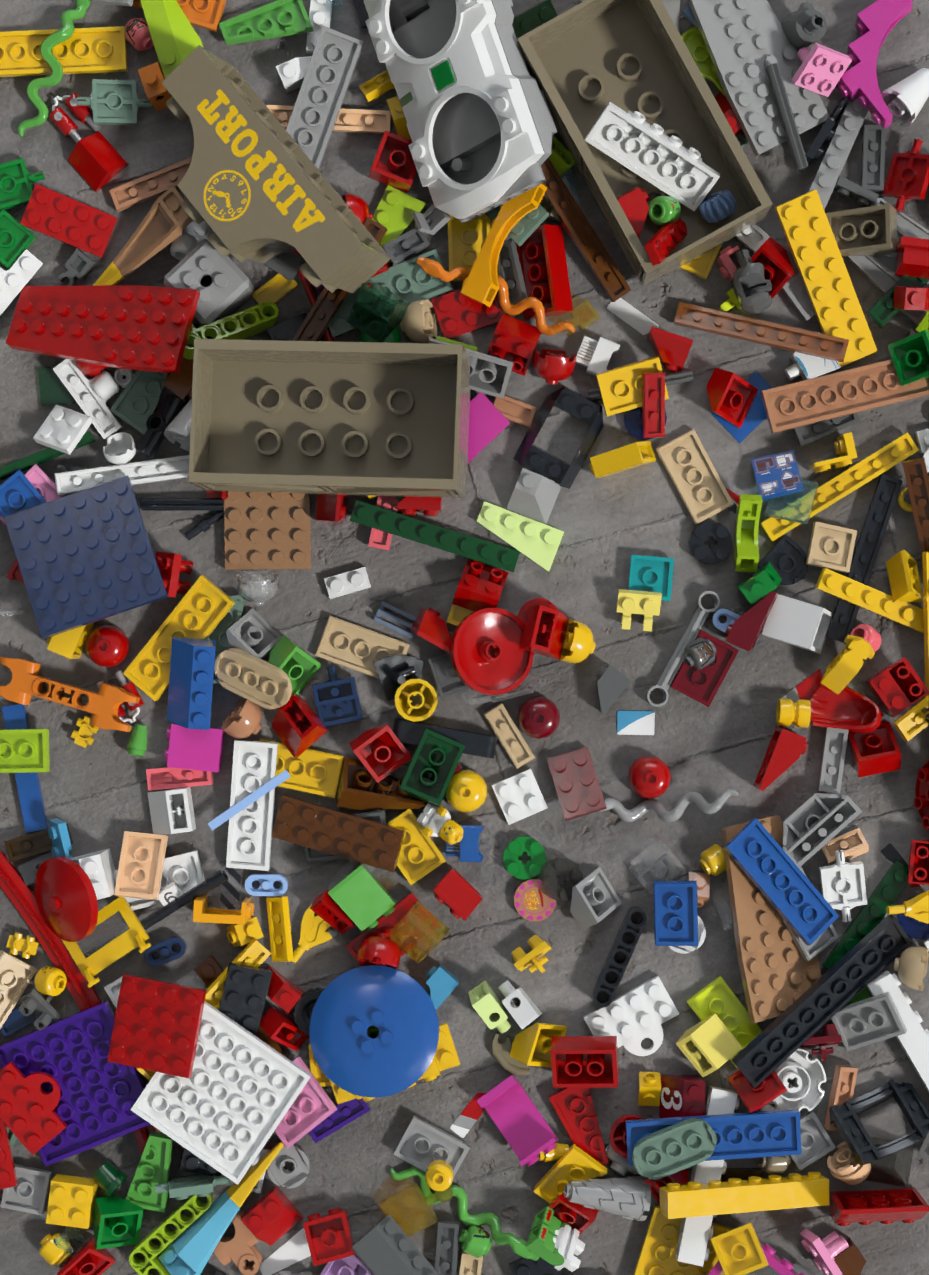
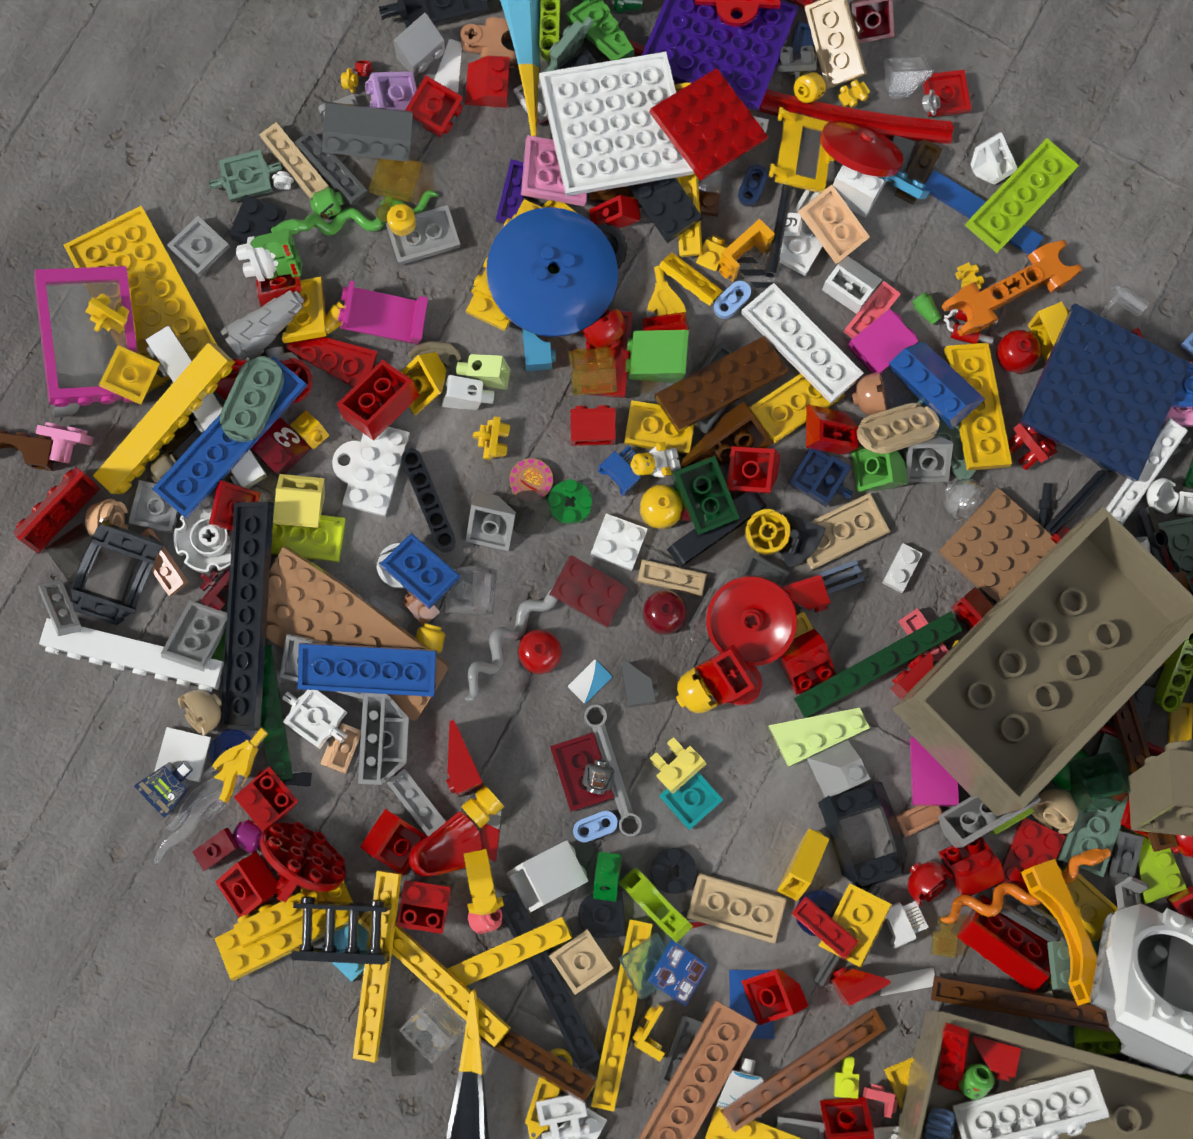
camera: 130 degrees right, 10 degrees down
(249, 800) = (808, 343): light blue sticker -> none
(283, 991) = (644, 238): red slope -> none
(300, 1168) = (505, 117): light grey plate -> none
(468, 1116) = (419, 282): sticker -> none
(749, 626) = (582, 833): dark red slope -> none
(751, 285) = (850, 1097): dark grey piece -> none
(904, 578) = (502, 995): yellow slope -> none

